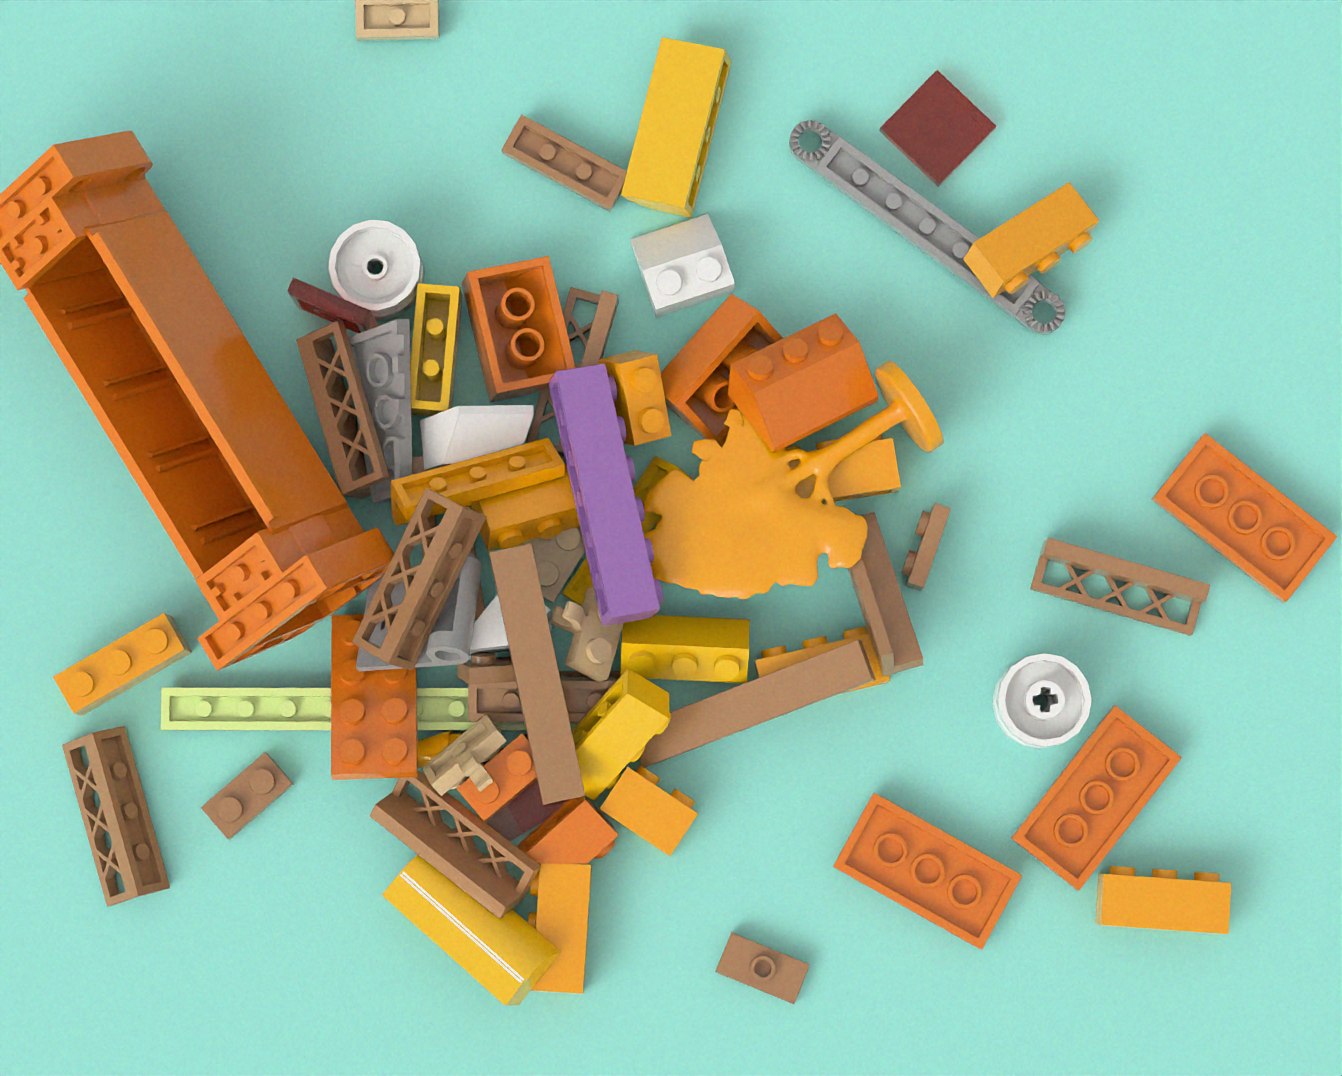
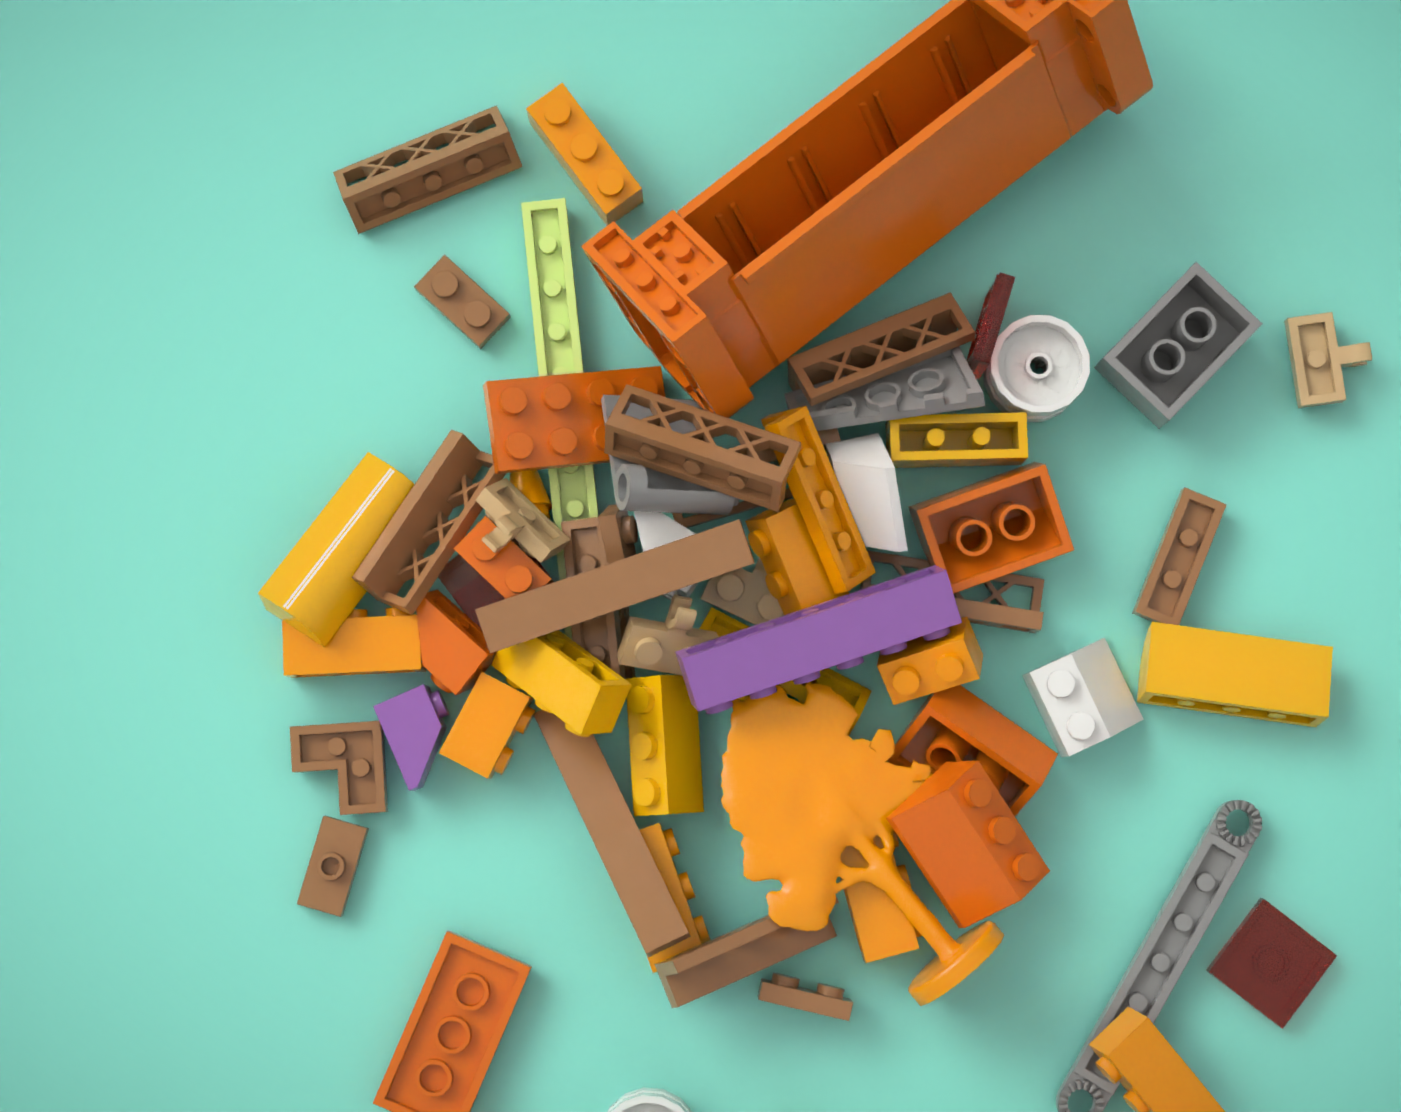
camera: 85 degrees right, 0 degrees up
(370, 139) = (1178, 345): none -> light grey brick
(645, 879) = (414, 731): none -> medium lavender slope
(659, 937) = (355, 752): none -> medium nougat plate

